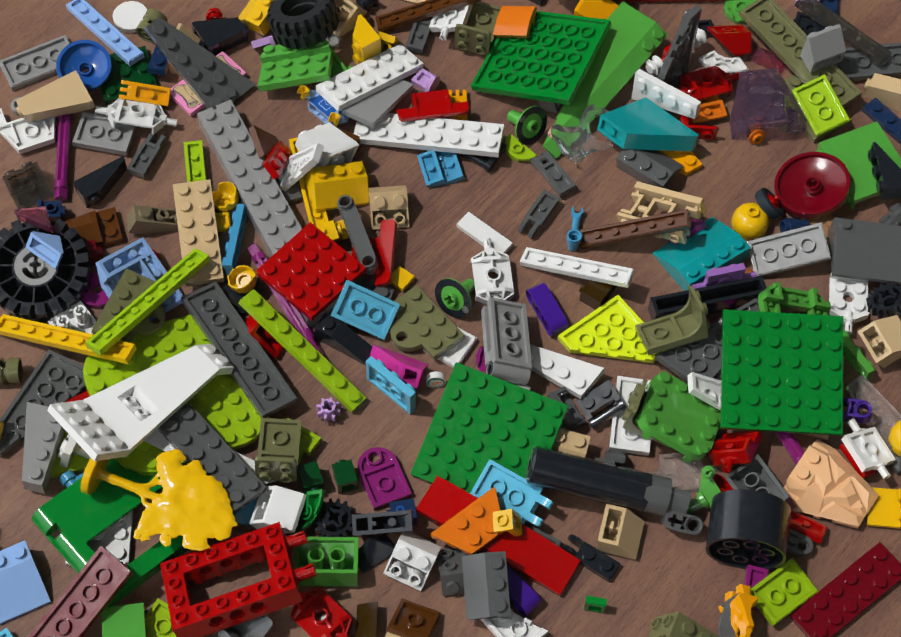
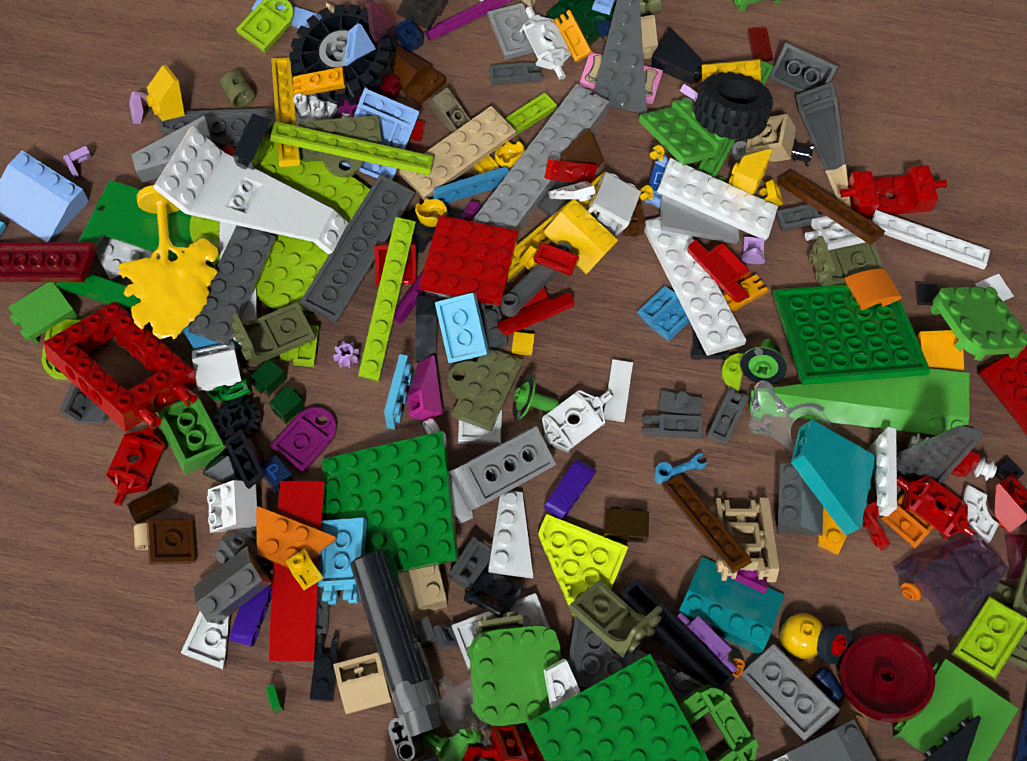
camera: 60 degrees right, 5 degrees up
(57, 297) = (319, 81): none -> light orange hinge
(93, 369) = (253, 142): none -> black slope
(97, 184) = (461, 54): black slope -> none
(214, 12) = (695, 43): red plate -> none
(352, 209) = (556, 259): none -> red tile
(389, 204) = (591, 290): tan slope -> none
(522, 200) = (679, 404): none -> dark grey tile
(577, 267) = (631, 492): white tile -> none

